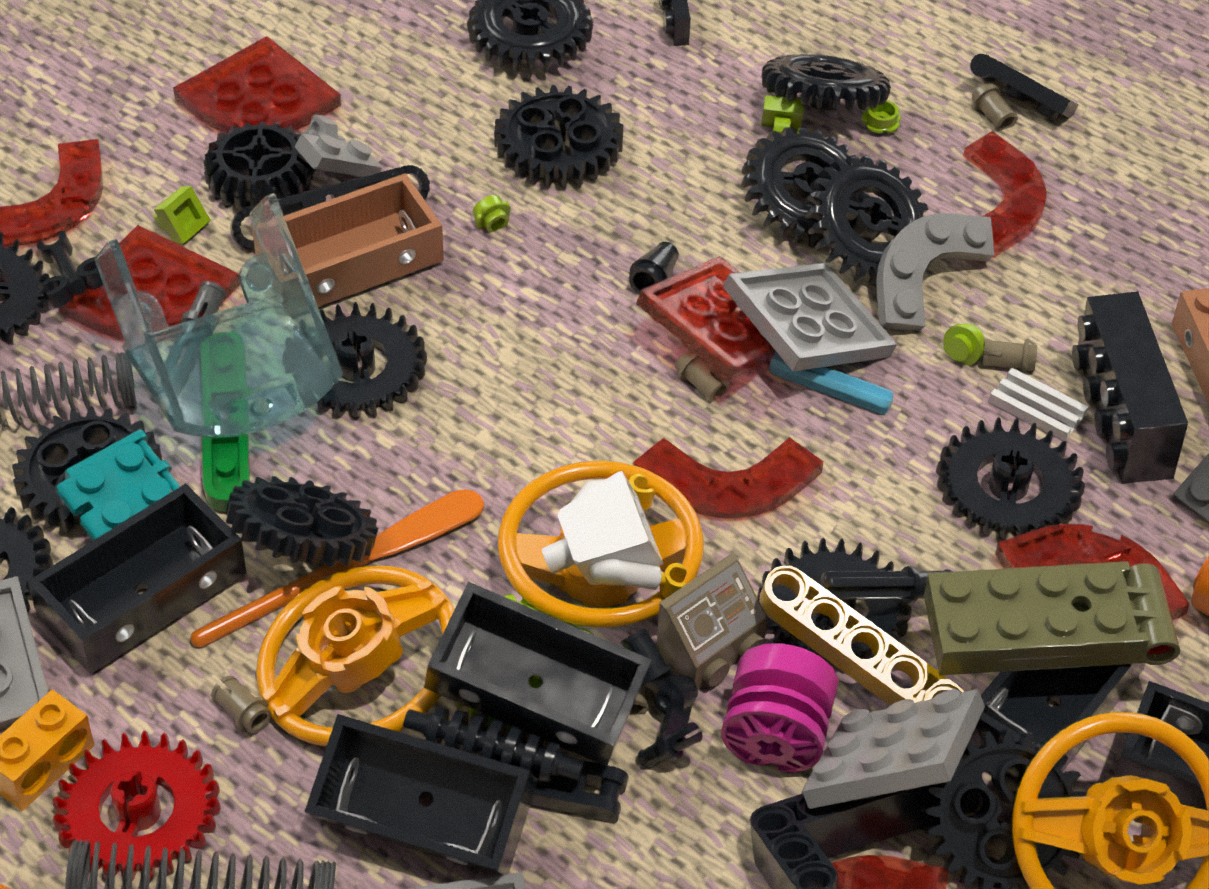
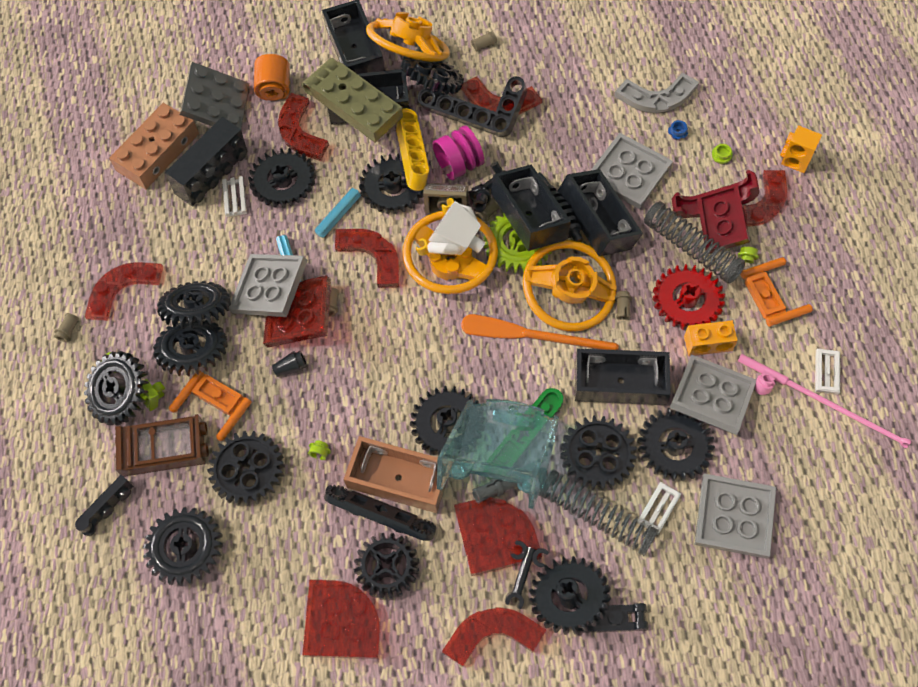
camera: 130 degrees left, 15 degrees up
(116, 484) = (599, 418): teal plate -> none
(181, 215) = (446, 565): lime tile -> none
(301, 521) = (544, 347): black gear -> none
(331, 152) = (348, 536): light grey hinge -> none
(693, 84) = (160, 445): none -> reddish brown door
(693, 175) = (216, 395): none -> orange plate
(859, 498) = (337, 212): none -> medium azure axle
(895, 748) = (445, 102): light grey plate -> none
(902, 584) = (369, 159): black axle -> none
(911, 251) = (211, 275): light grey plate -> none
(964, 343) = (227, 234): lime plate -> none
(1013, 355) = (215, 215): dark tan pin -> none
(1021, 85) = (43, 324): black plate -> none

